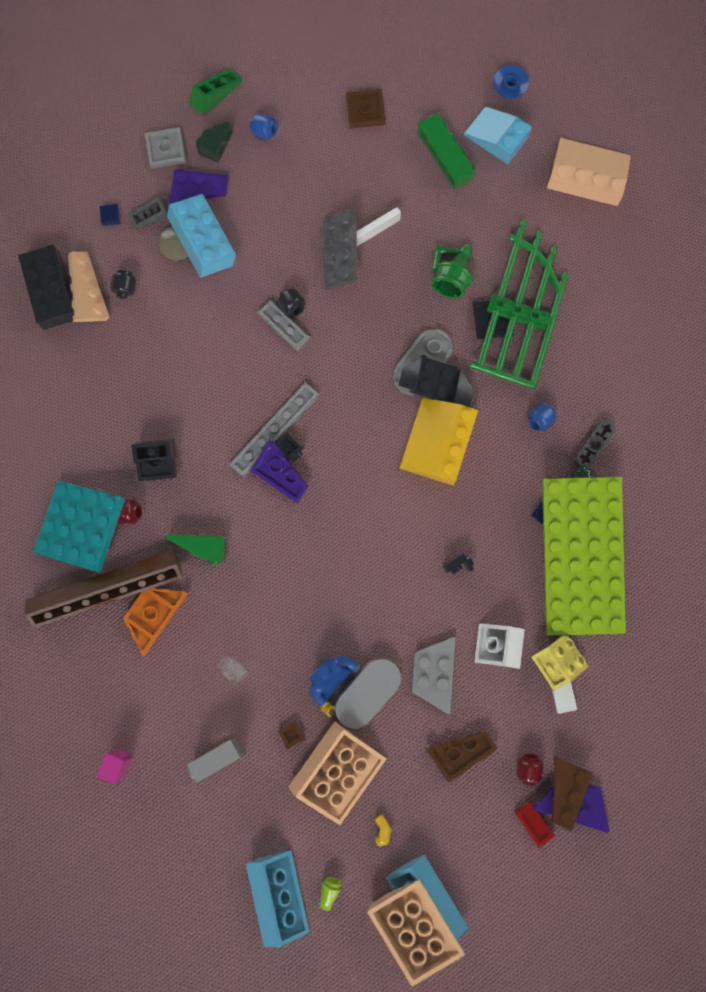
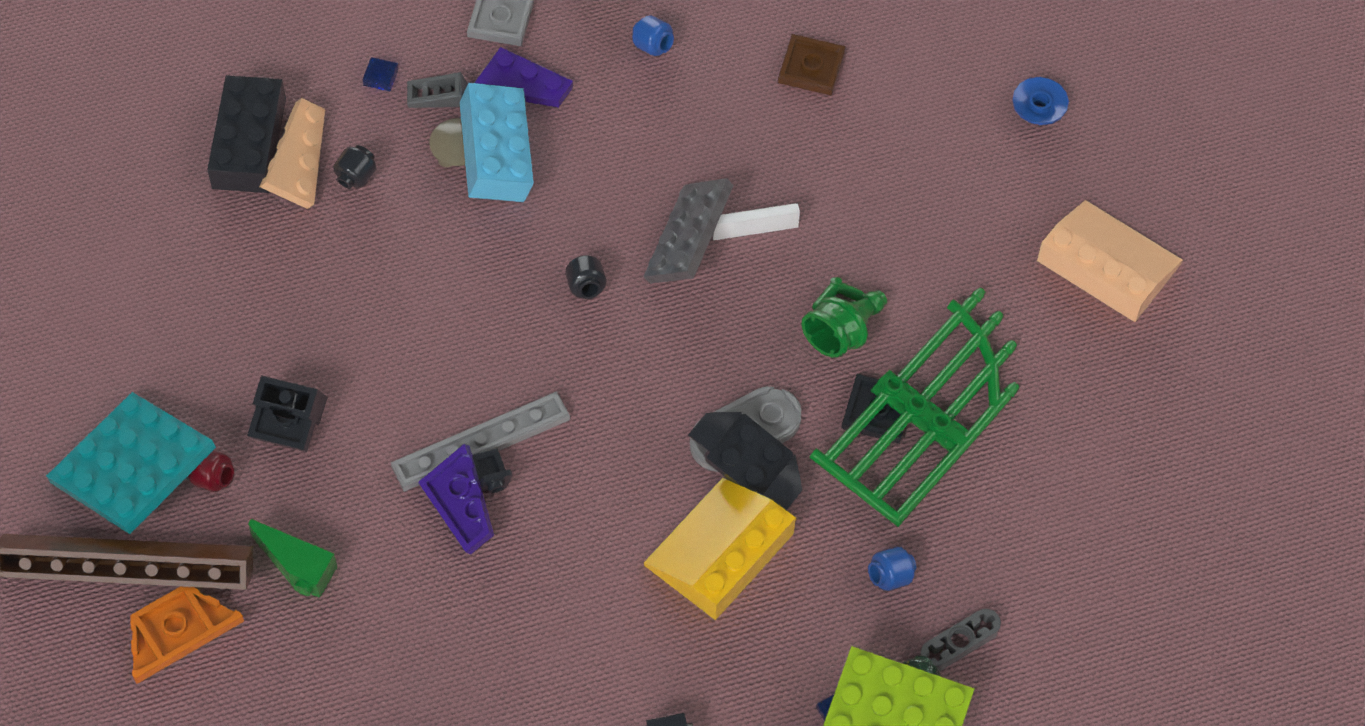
camera: 15 degrees right, 20 degrees down
(214, 141) = (574, 31): clear green slope -> none
(283, 325) = (560, 305): light grey tile -> none
(445, 151) = (904, 158): green brick -> none
(499, 133) = (995, 163): medium azure slope -> none

